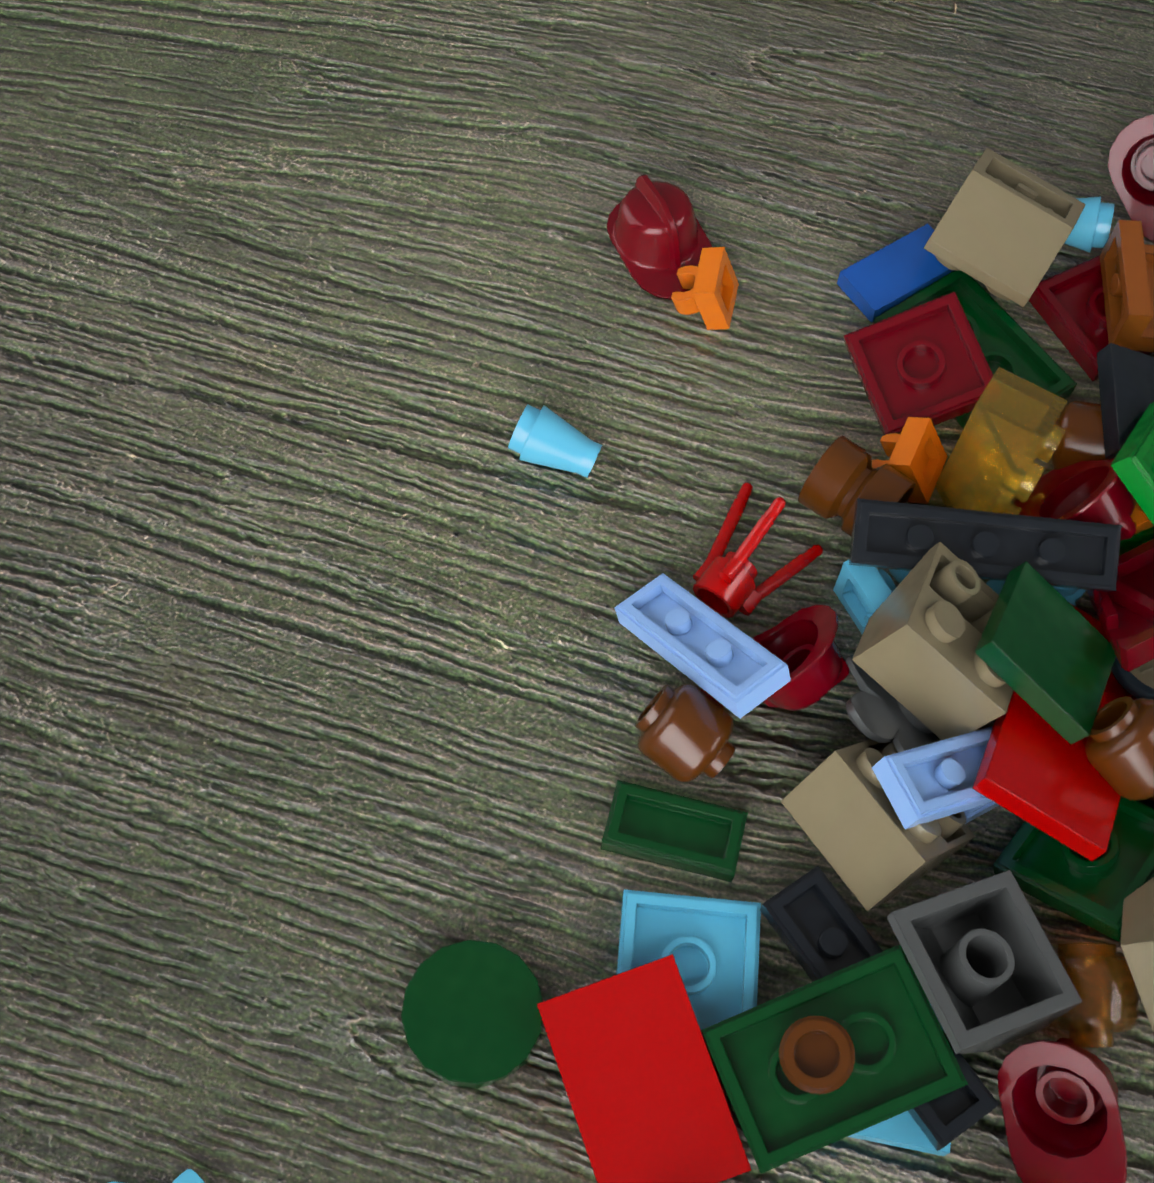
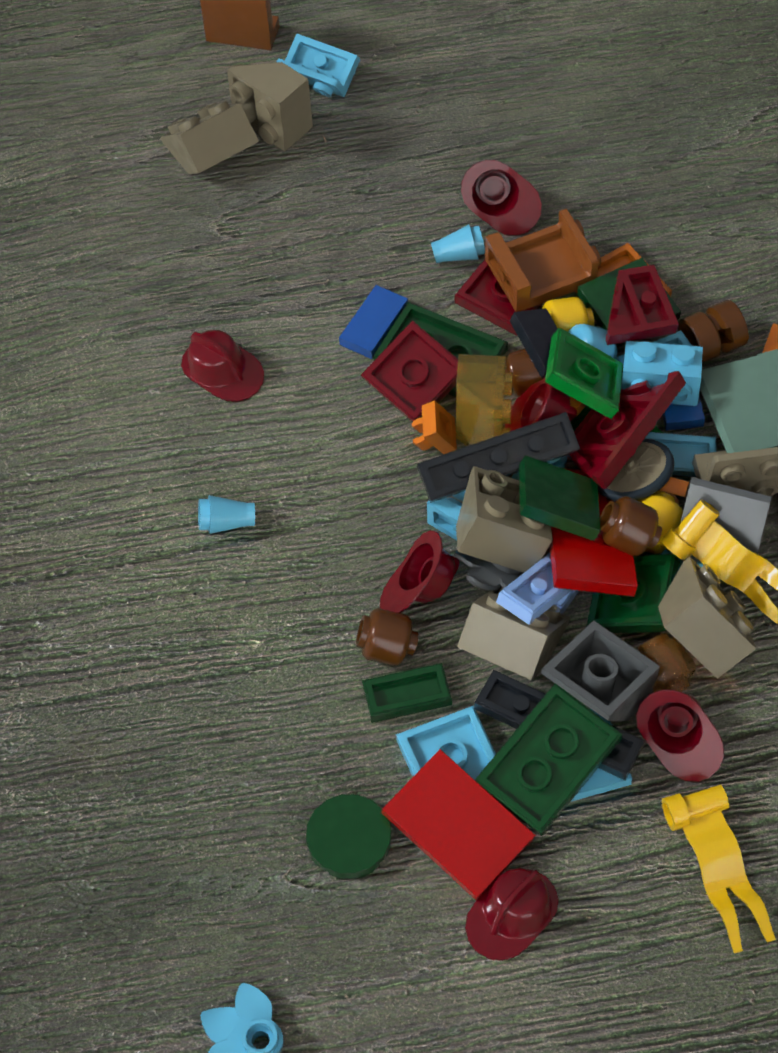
camera: 20 degrees left, 5 degrees down
(703, 645) = (370, 584): light blue tile -> none
(712, 289) = (269, 382): orange tile -> none
(728, 581) = (367, 545): red plant -> none
(817, 1055) = (539, 758): reddish brown tile -> none
(846, 475) = (403, 456): reddish brown wheel -> none
(1004, 227) = (422, 268): dark tan slope -> none

